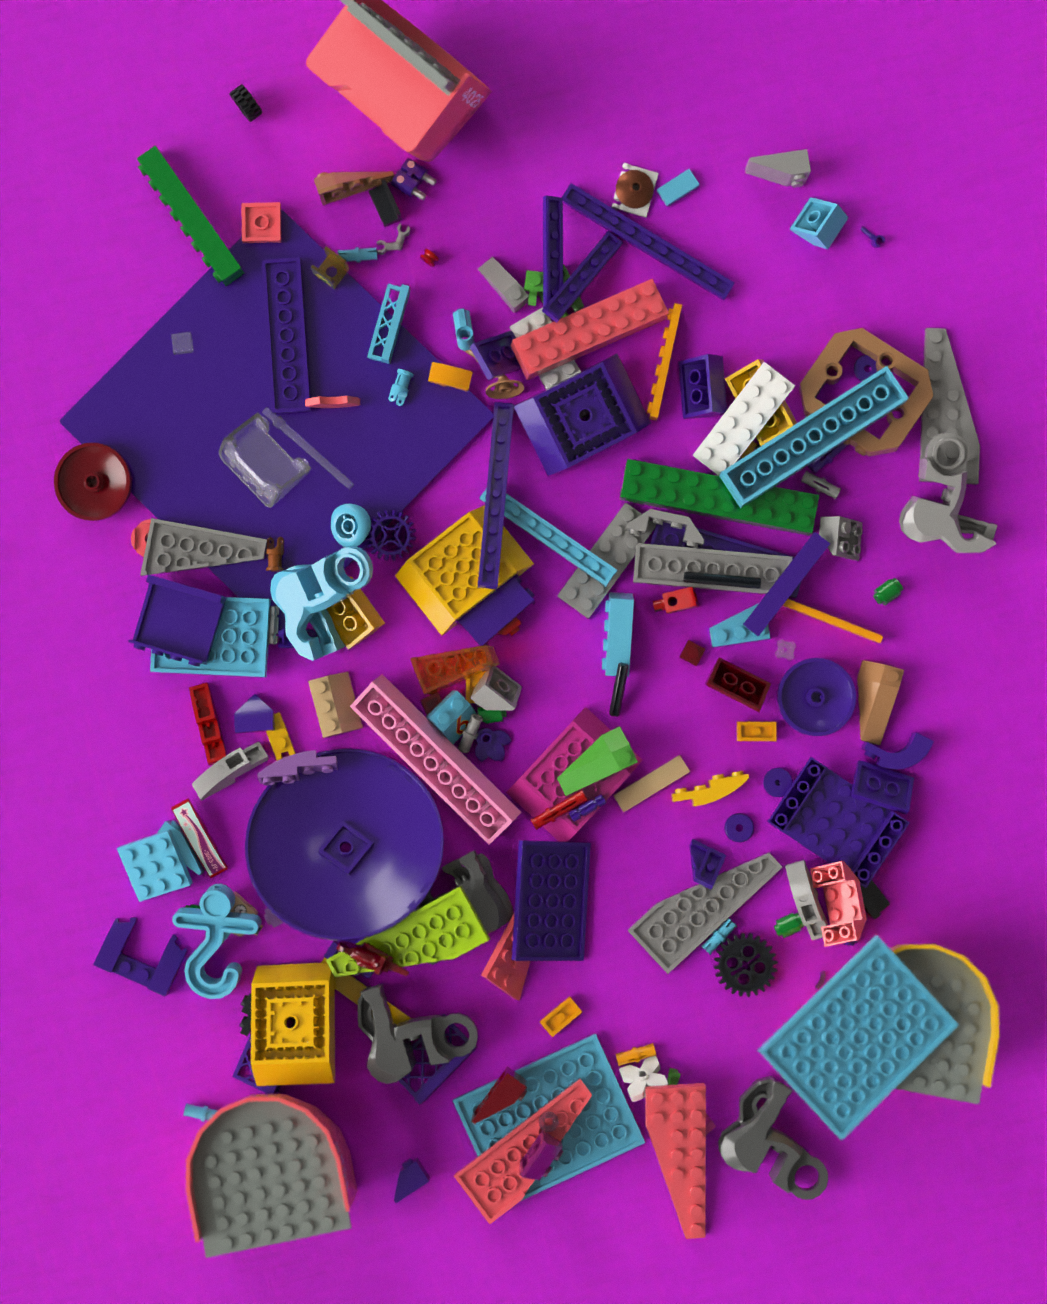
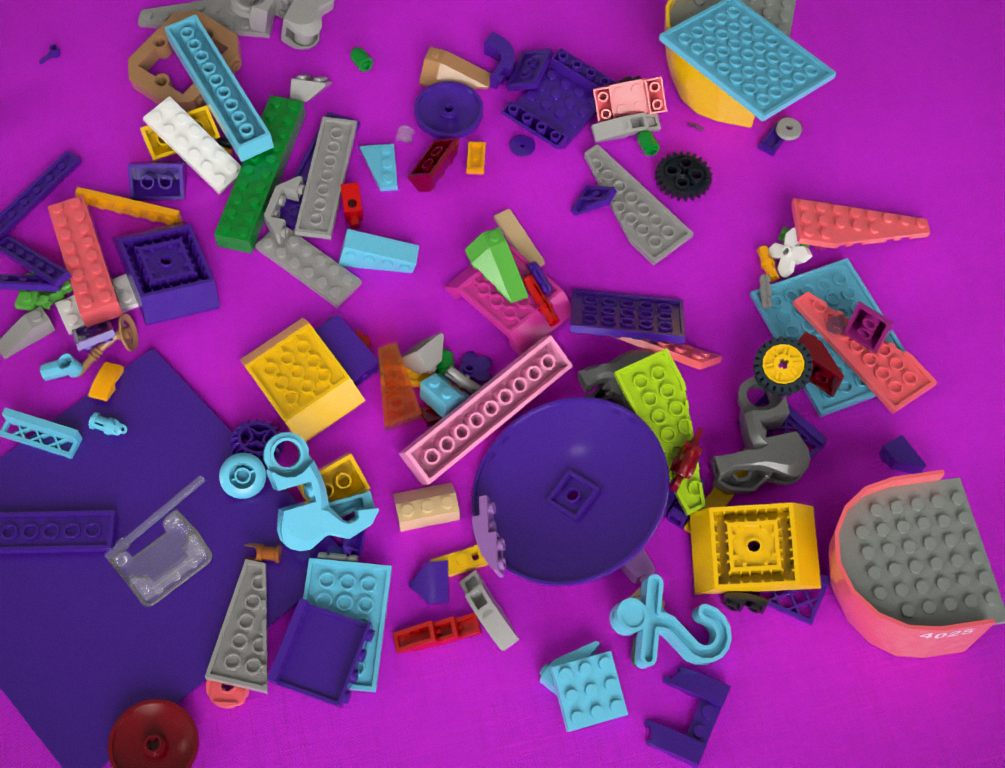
camera: 90 degrees left, 25 degrees down
(182, 343) = (15, 641): clear tile -> none
(199, 838) = (558, 645): slope -> none
(199, 1112) = (852, 653): medium azure pin -> none
(332, 402) = (111, 488): coral tile -> none
(467, 1056) = (784, 352): none -> wheel
(495, 496) = (232, 340): dark purple plate -> none
(557, 540) = (275, 306): medium azure plate -> none
(560, 1016) = (735, 320): light orange plate -> none
(593, 1049) = (765, 291): none -> light grey axle
(619, 687) = (430, 254): black axle -> none
(692, 653) = (401, 203): dark red plate -> none
(718, 788) = (527, 191): yellow slope -> none
(719, 936) = (659, 194): medium azure pin -> none
(723, 580) = (337, 166): black axle -> none
(730, 827) = (561, 183): dark purple piece -> none
(752, 1134) = (840, 172): dark grey animal -> none
(786, 584) = (347, 120): dark purple tile -> none
(808, 478) = (262, 99): light grey pin -> none
(819, 222) = (27, 87): medium azure slope -> none
(833, 621) = (379, 103): light orange tile -> none
(859, 366) = (172, 64): dark purple piece -> none

